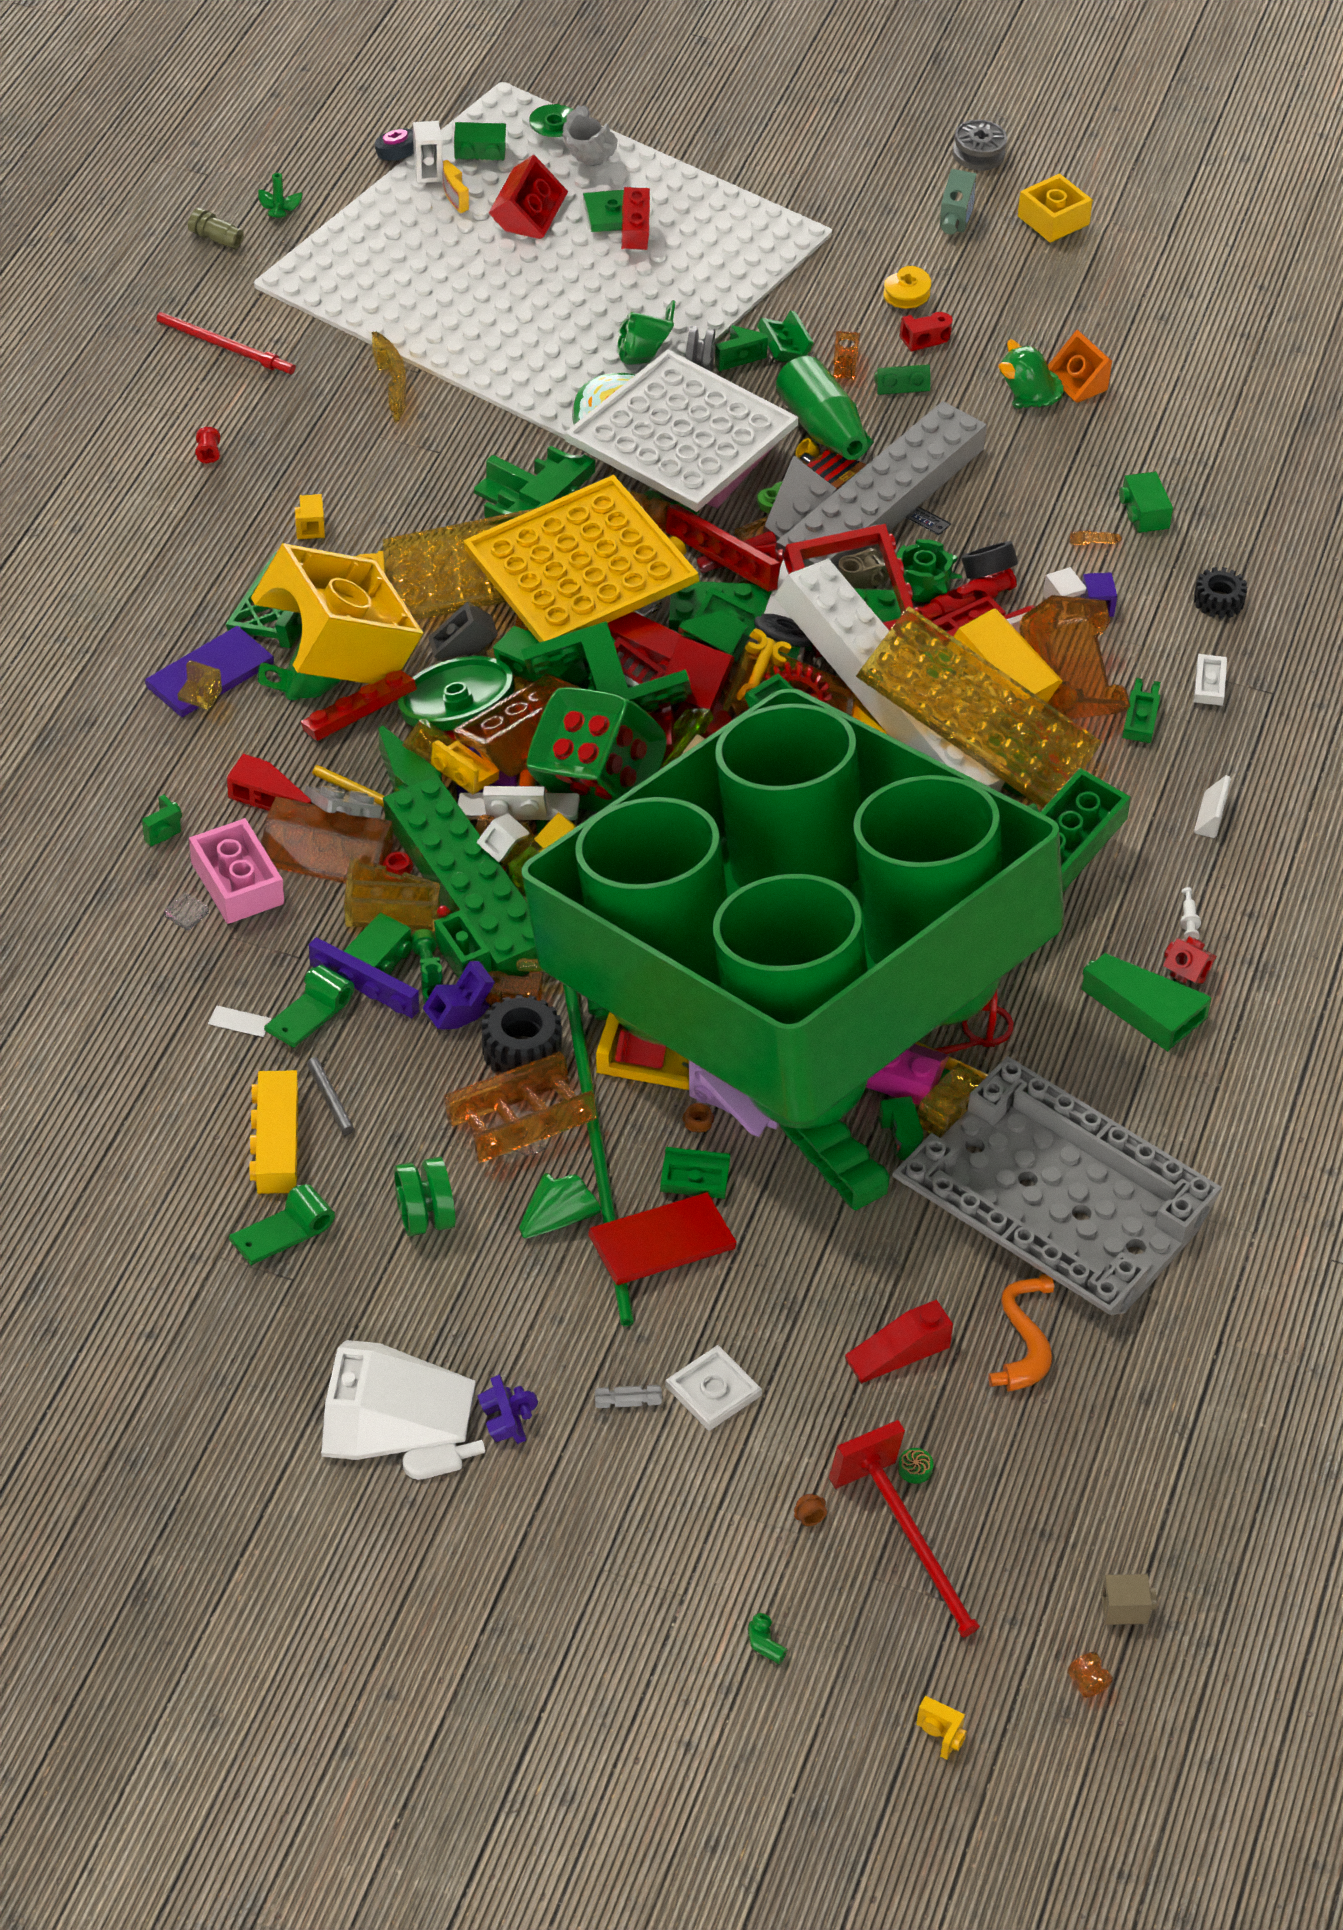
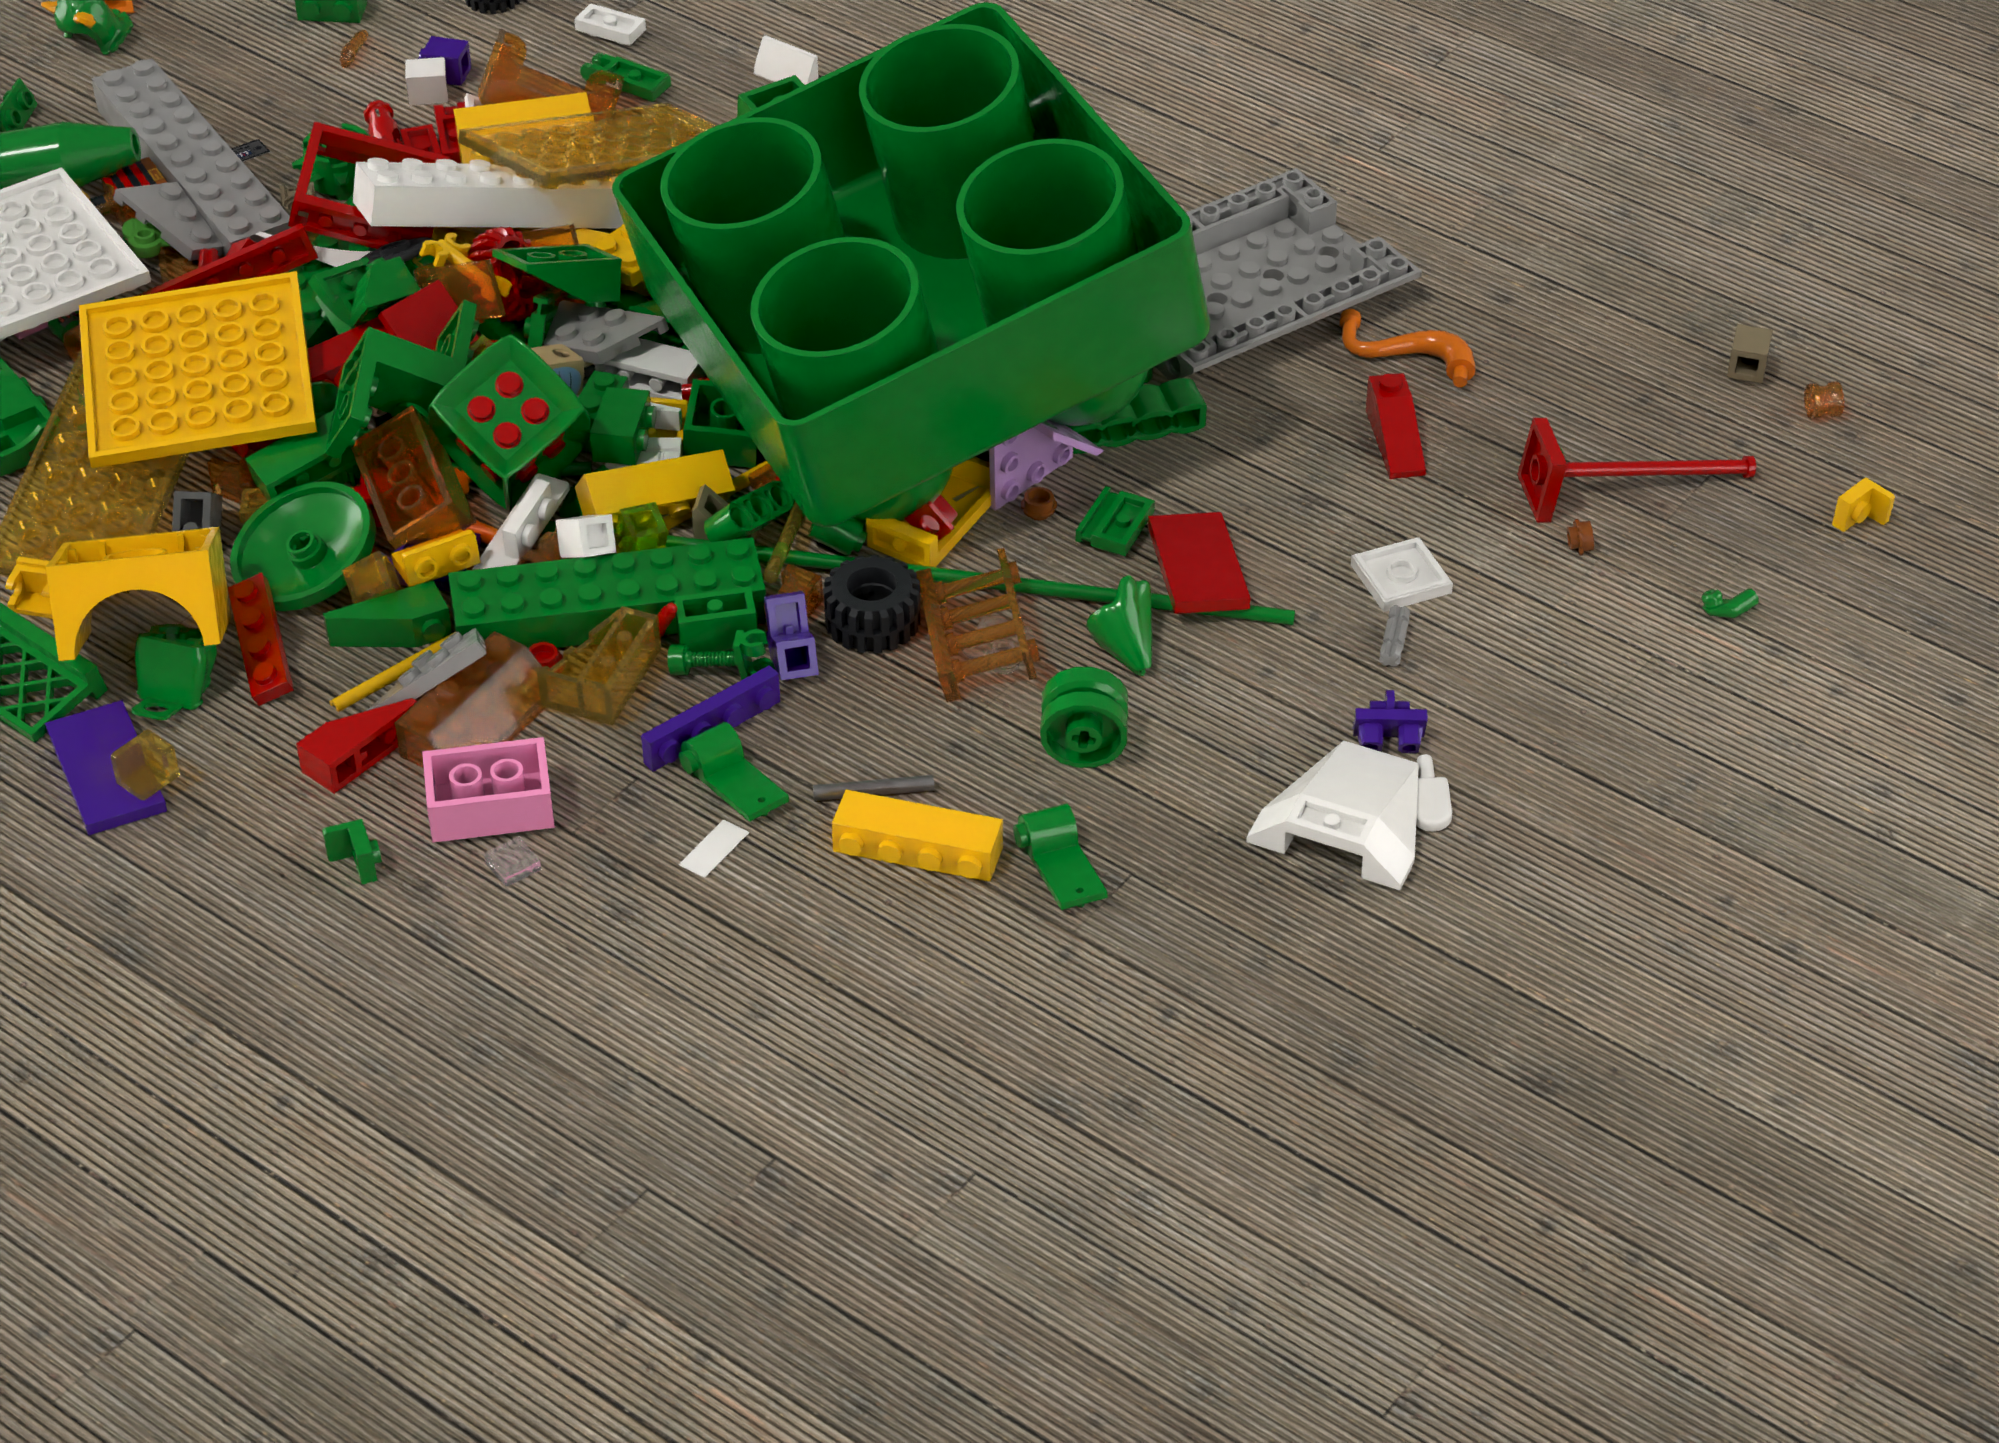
camera: 70 degrees left, 5 degrees down
(382, 943) = (666, 689): green brick -> none
(989, 560) = (357, 104): black tyre -> none

